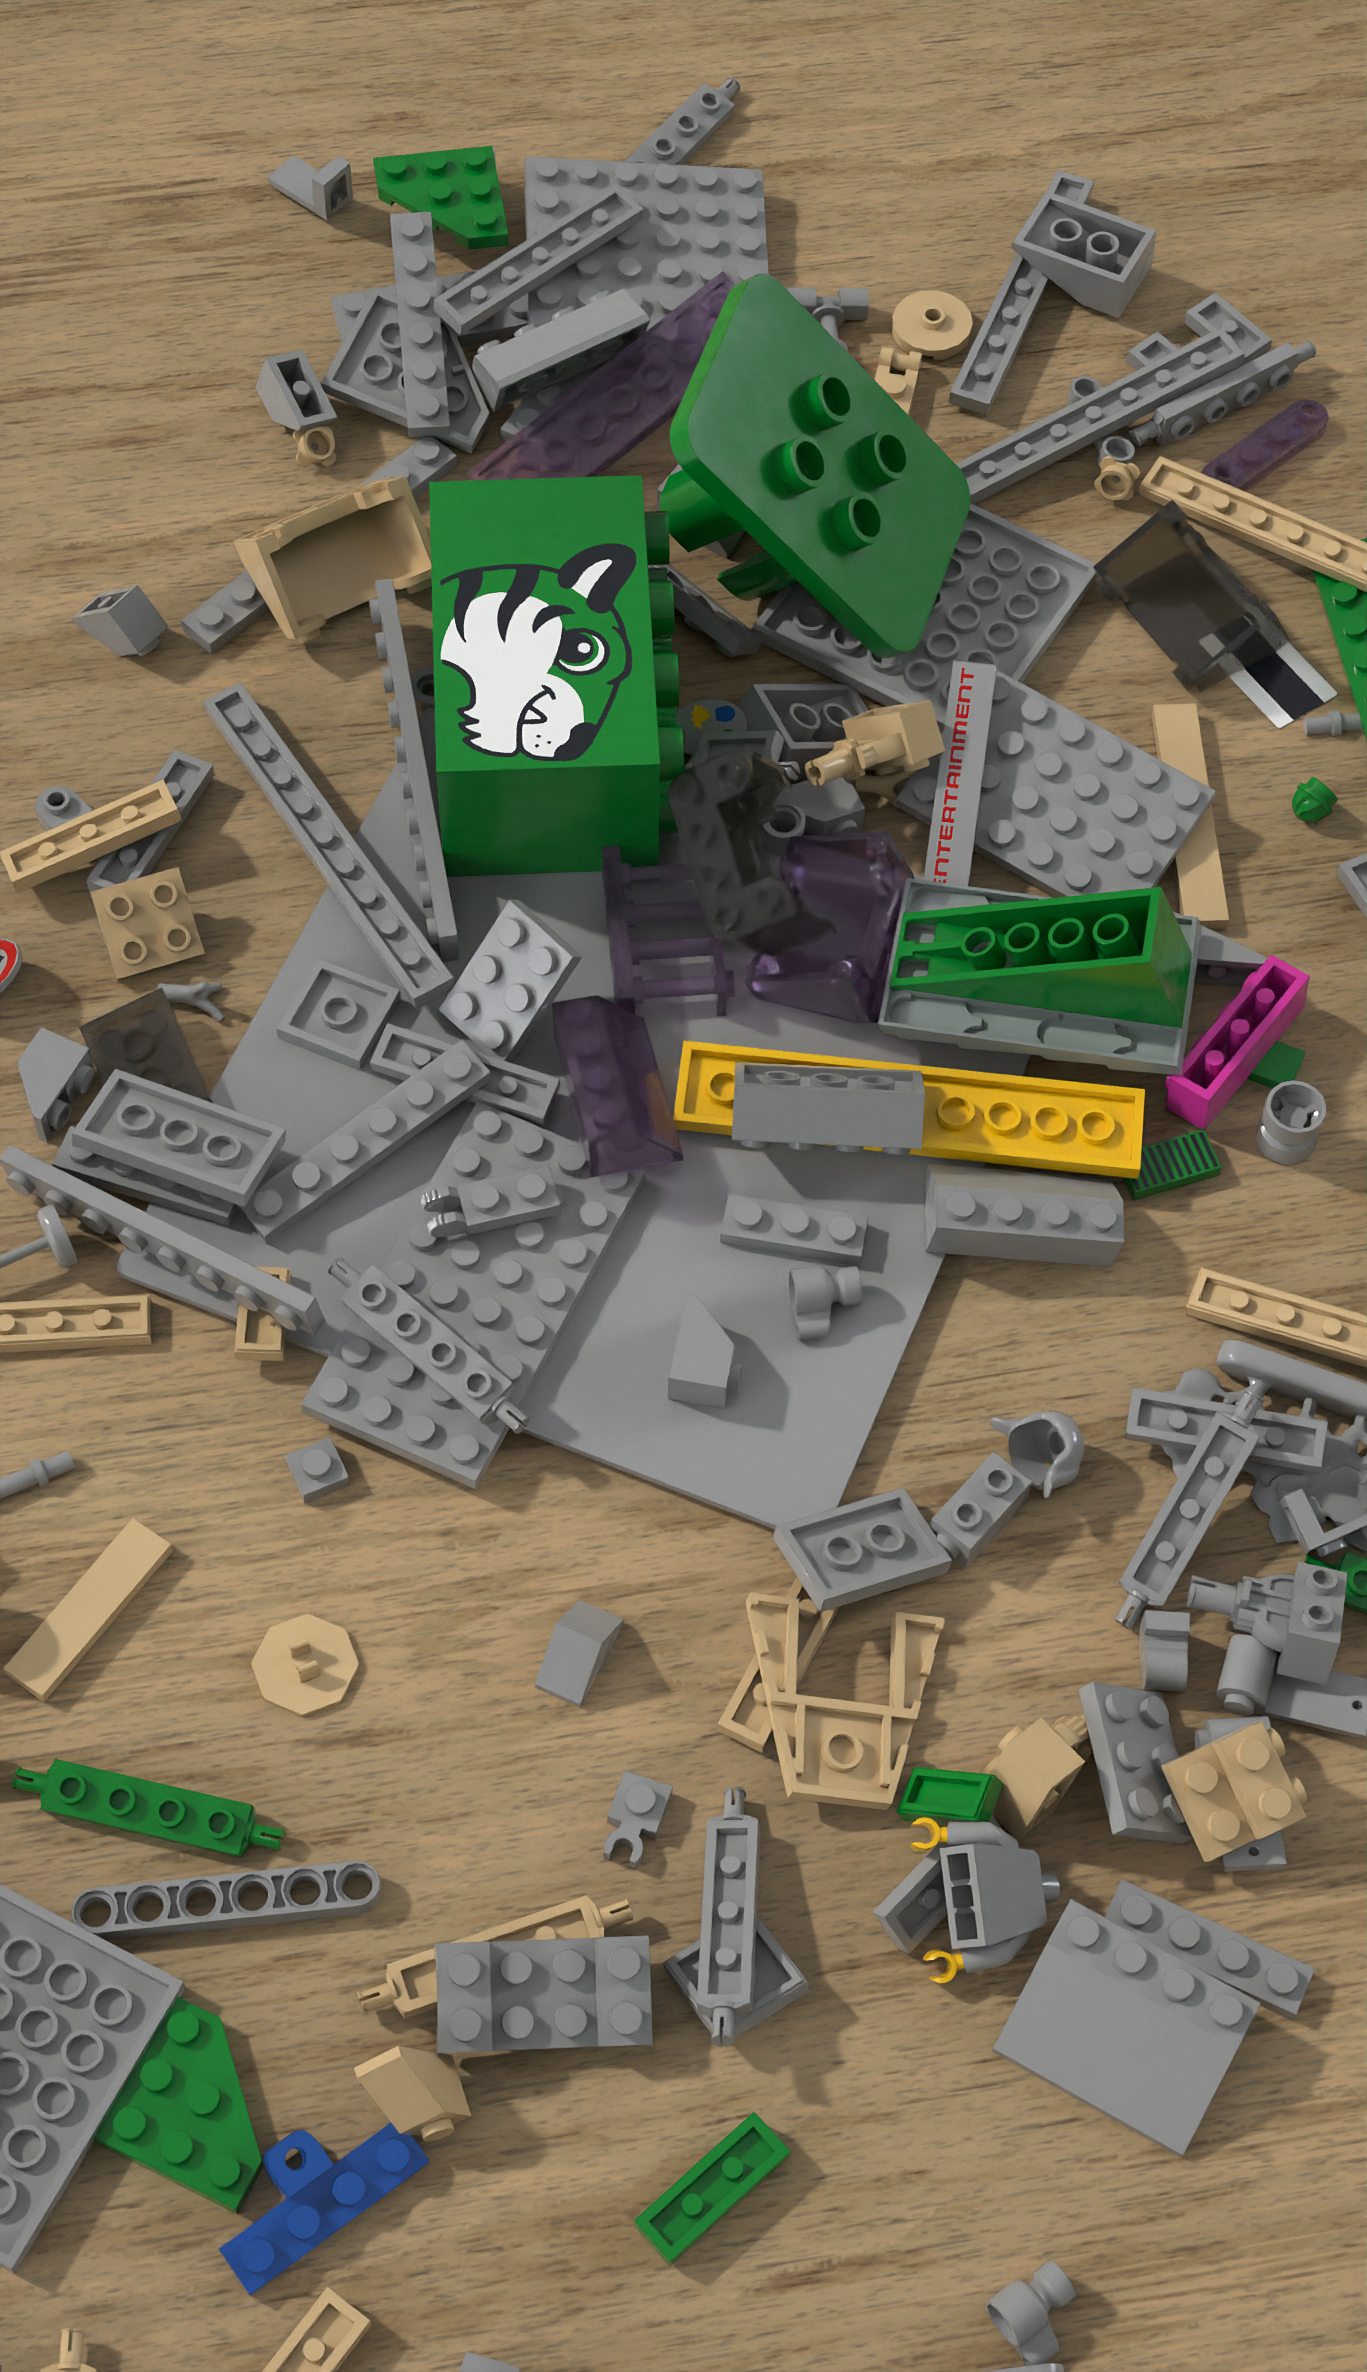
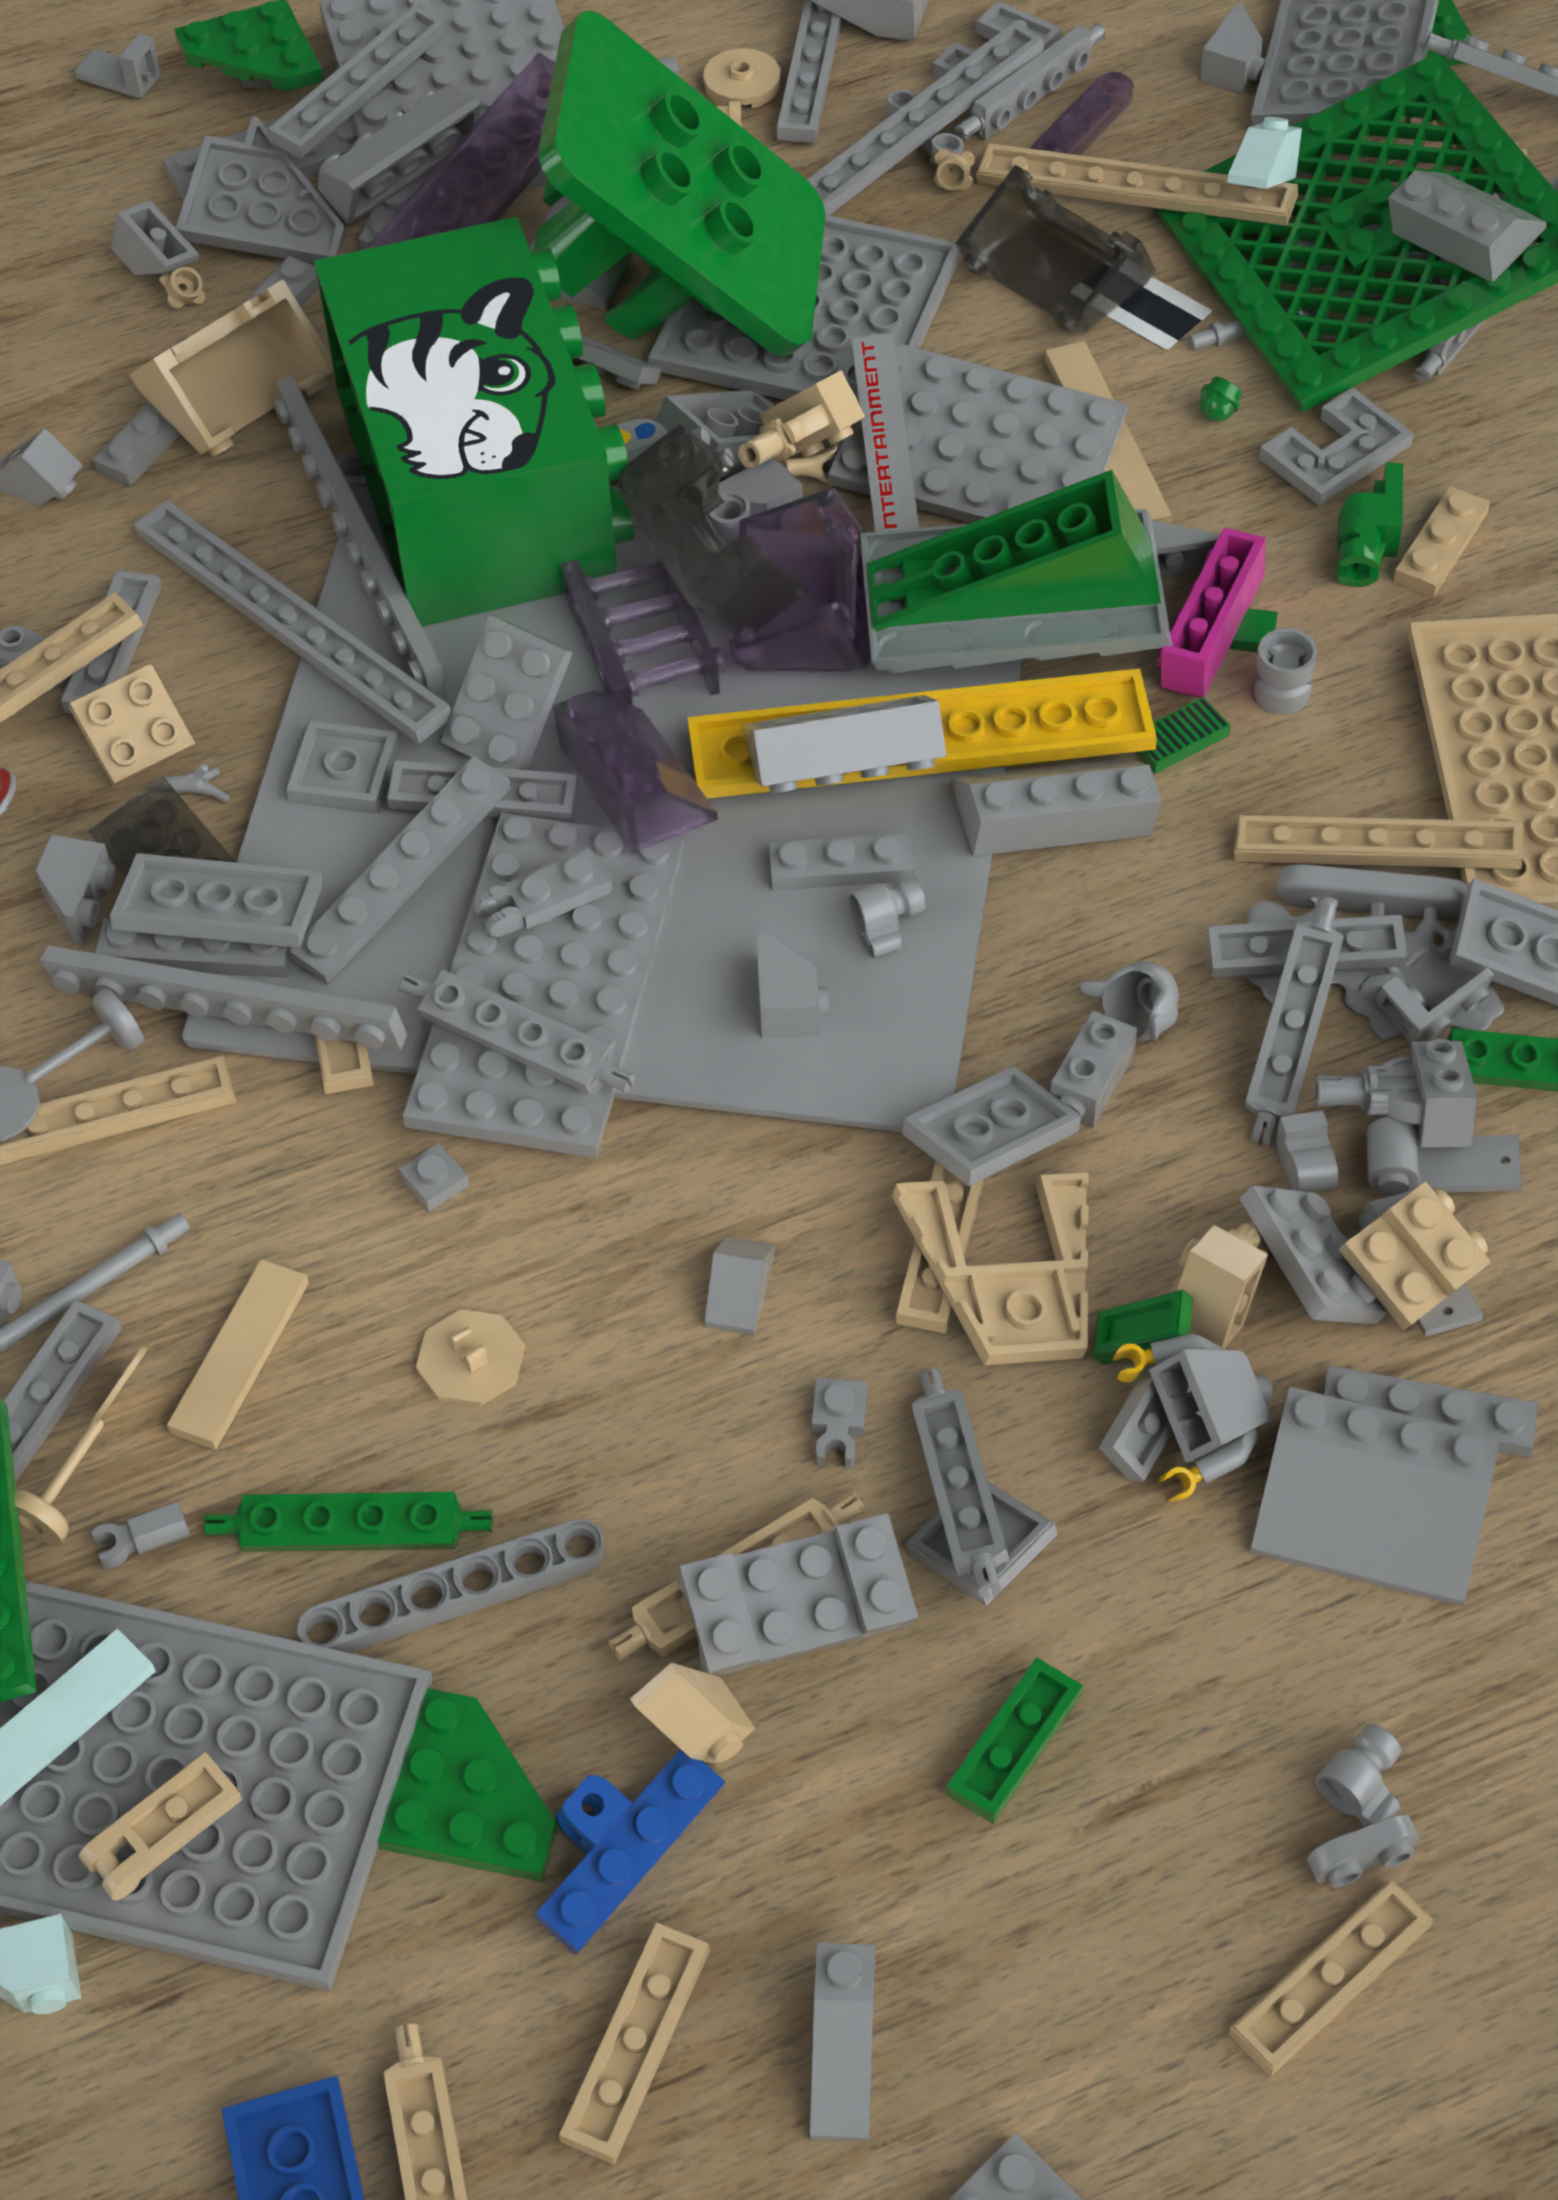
camera: 10 degrees left, 5 degrees down
(419, 325) = (258, 159): light grey plate -> none

